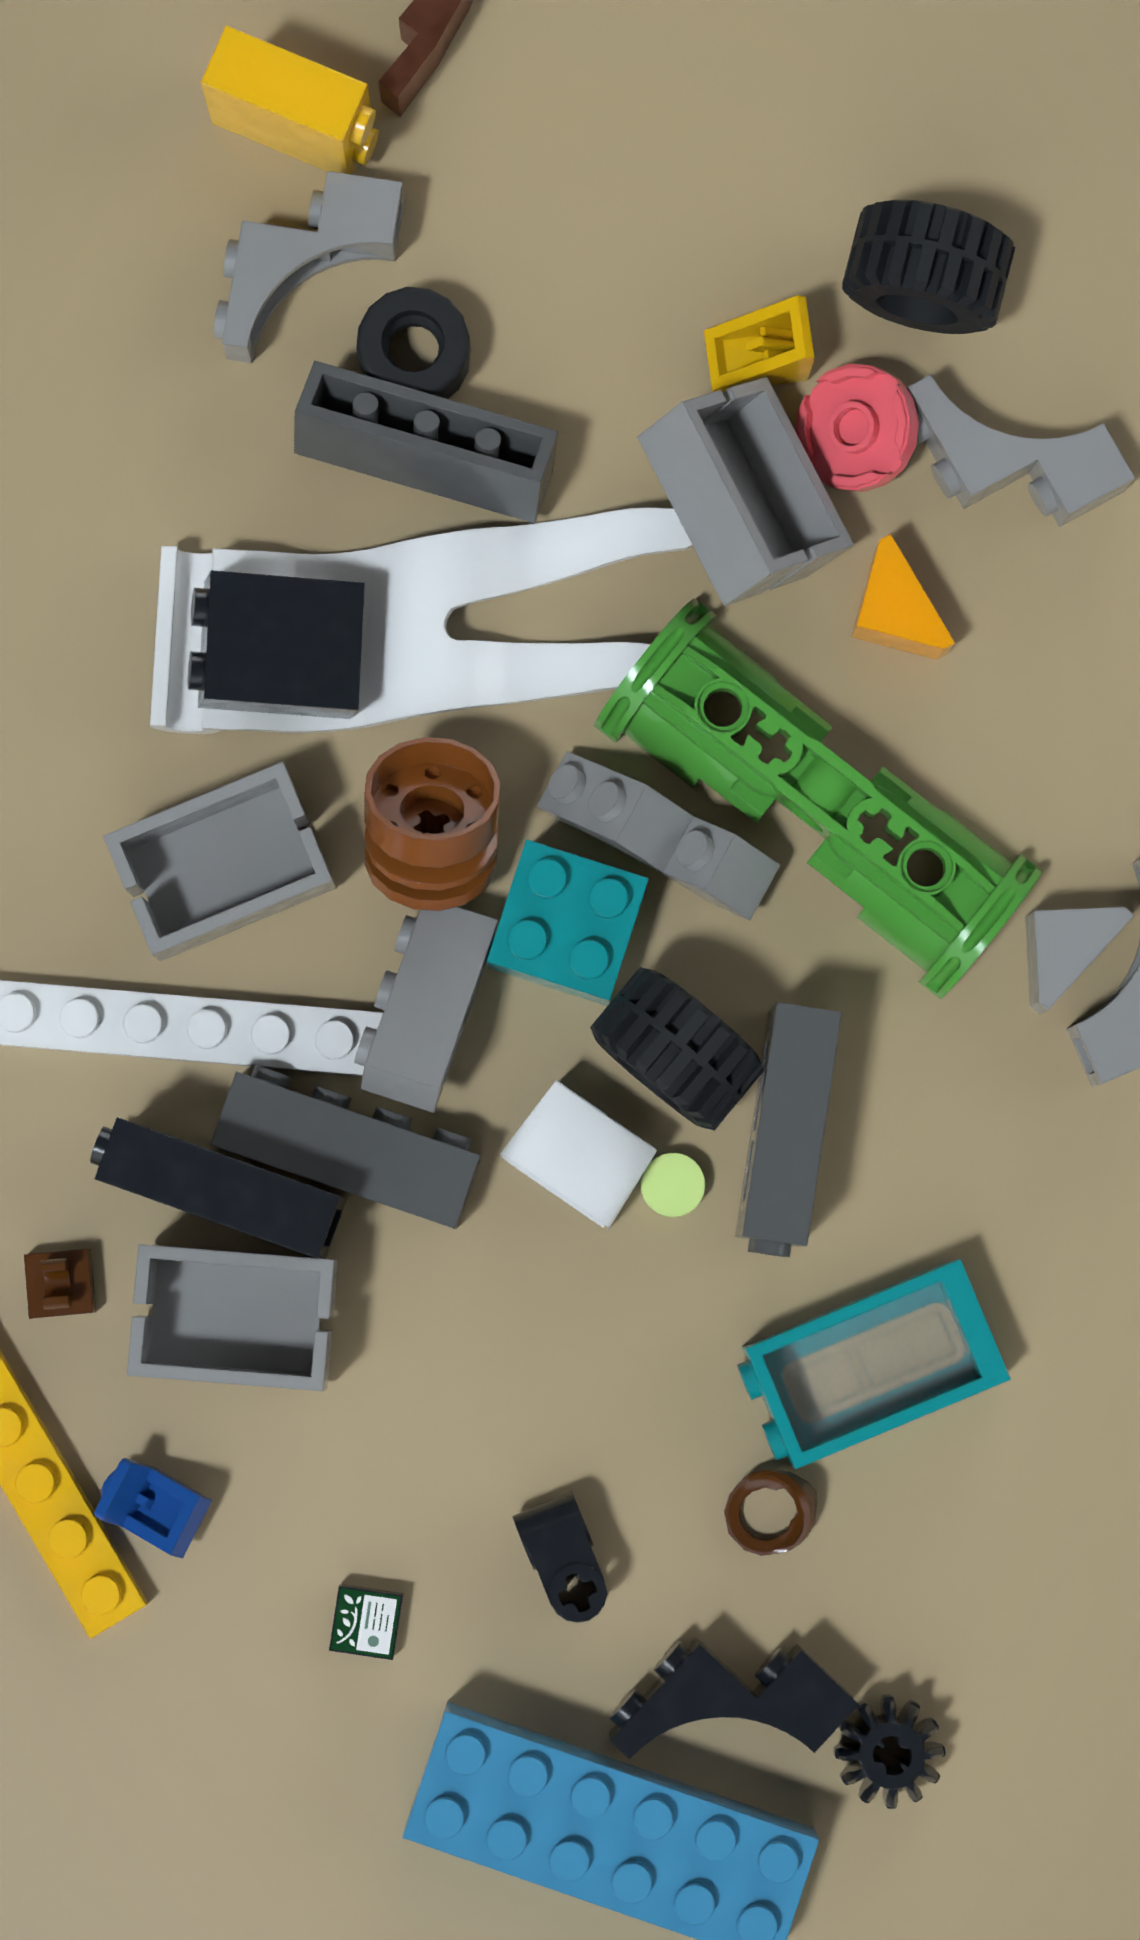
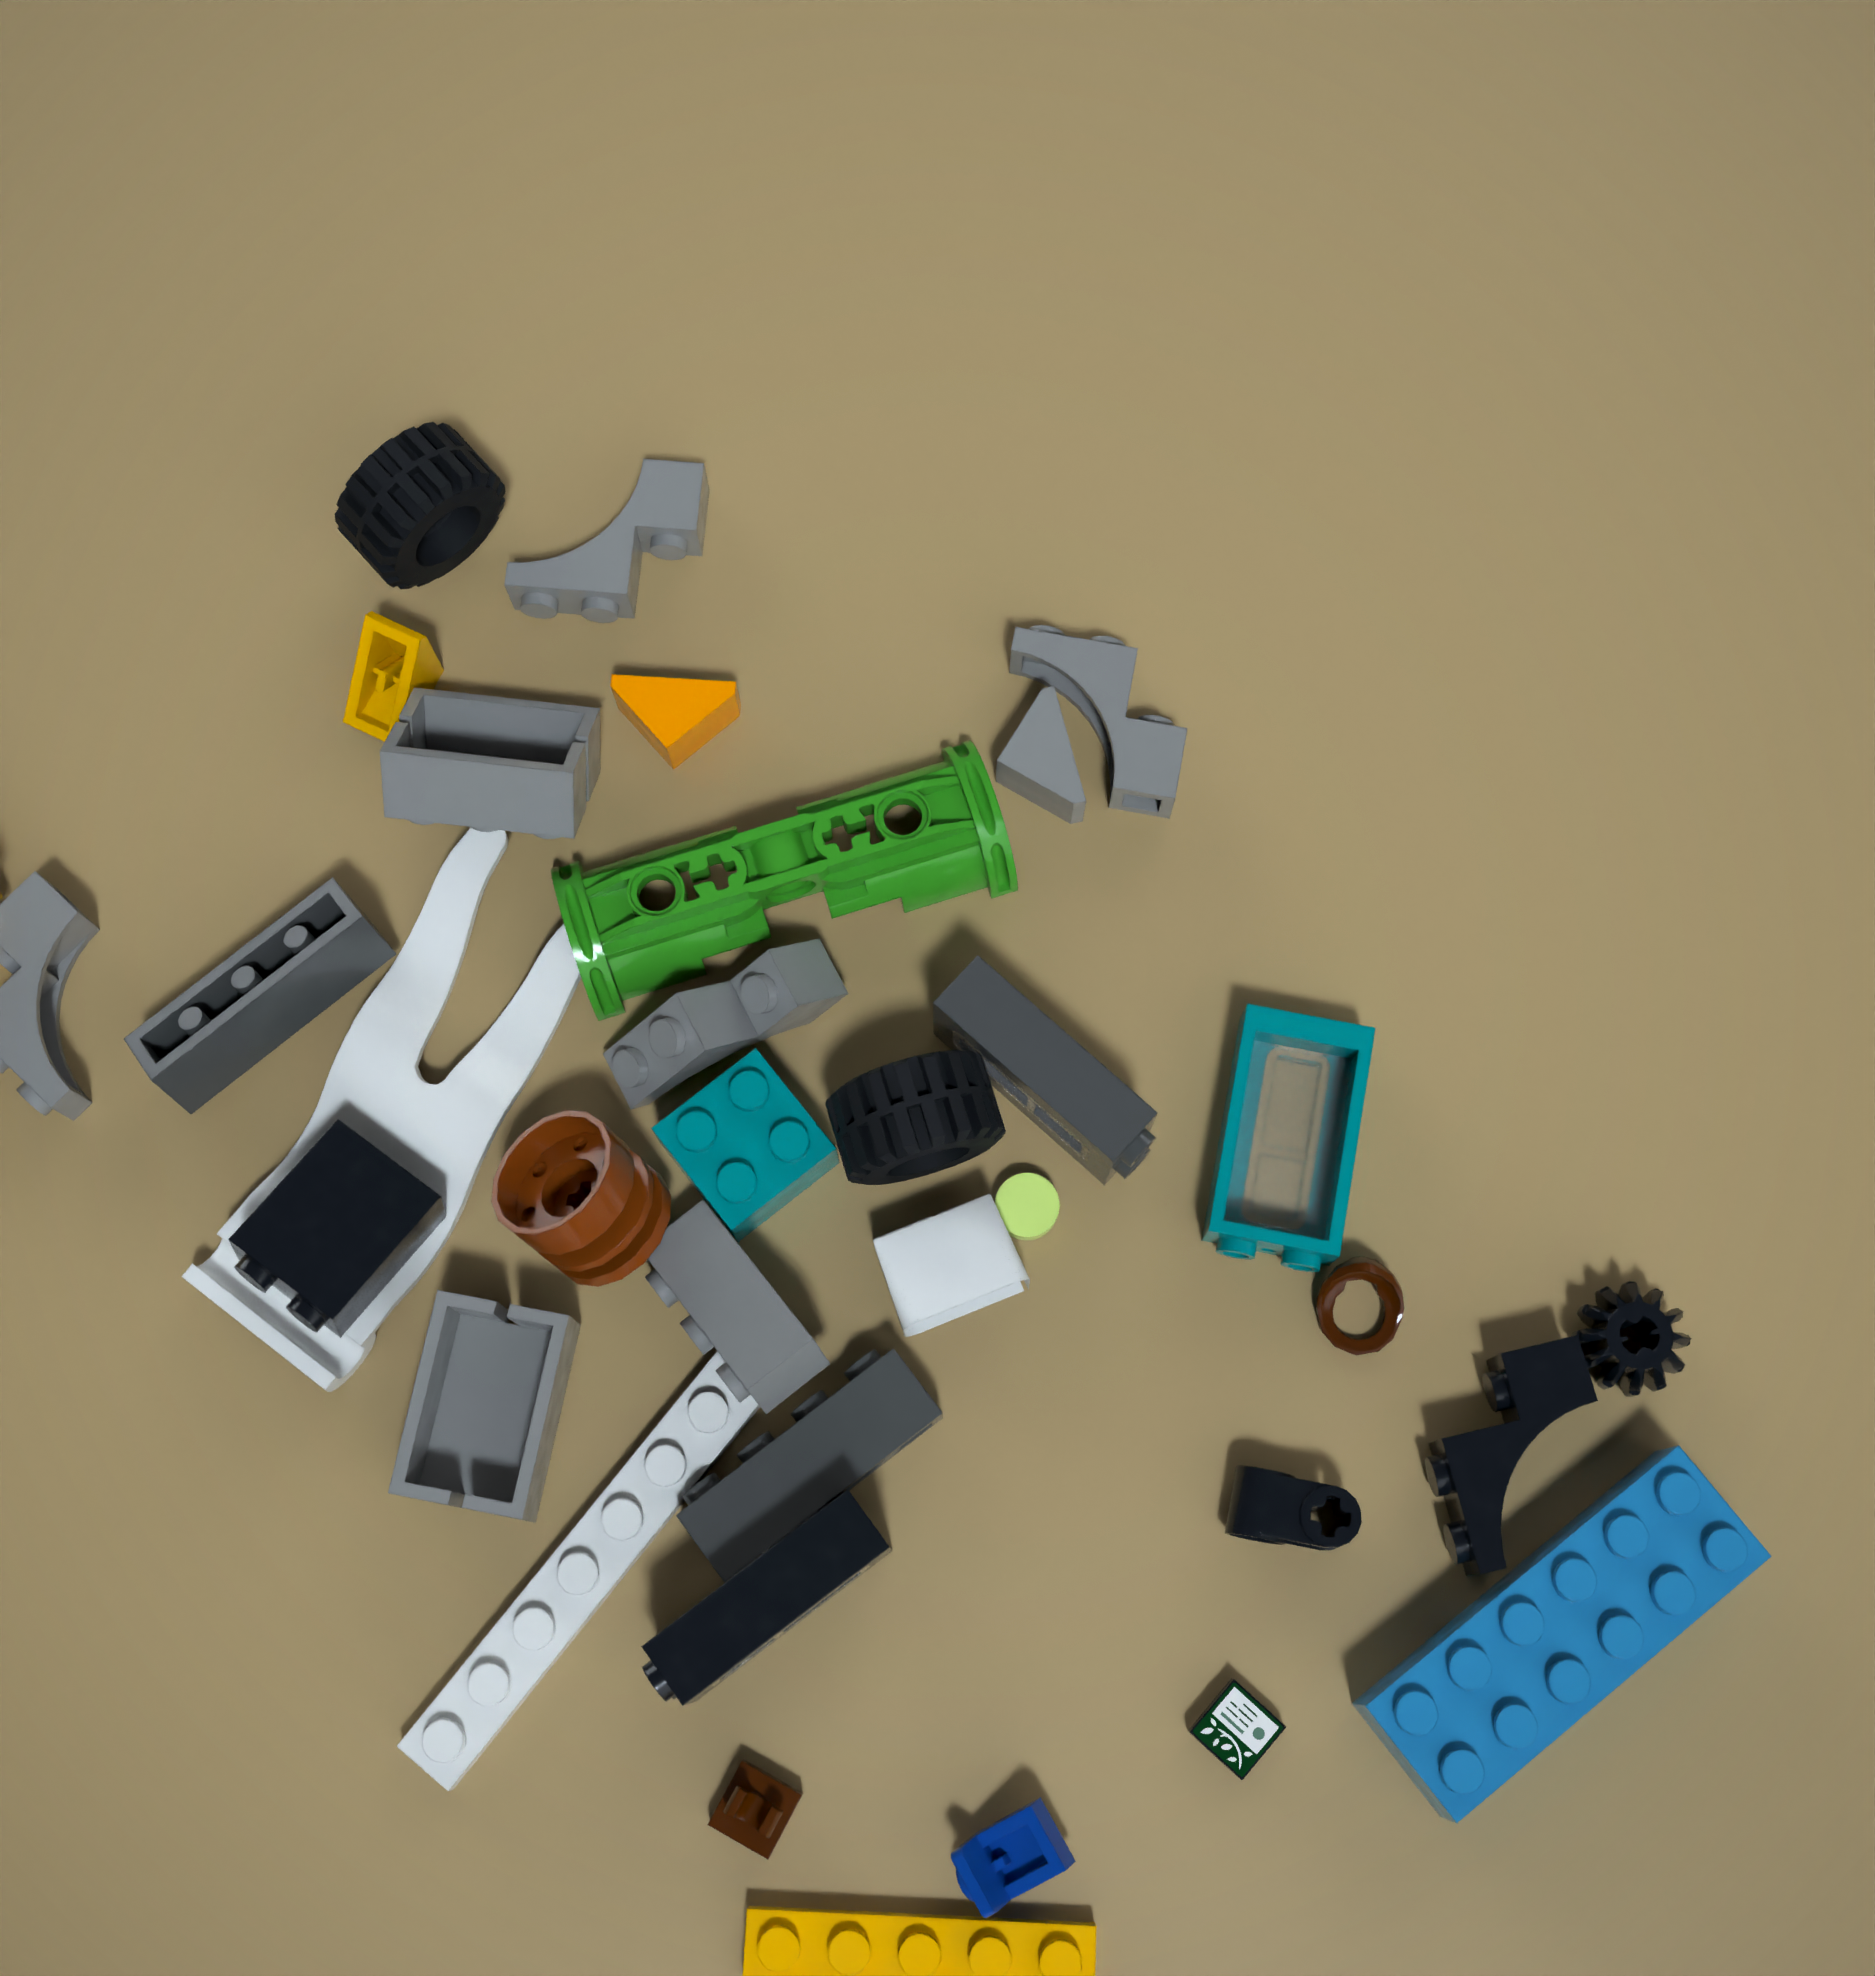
camera: 50 degrees left, 10 degrees down
(233, 1317) = (889, 1666): light grey piece -> none
(423, 309) = (152, 931): black tyre -> none
(858, 427) = (508, 645): coral tile -> none

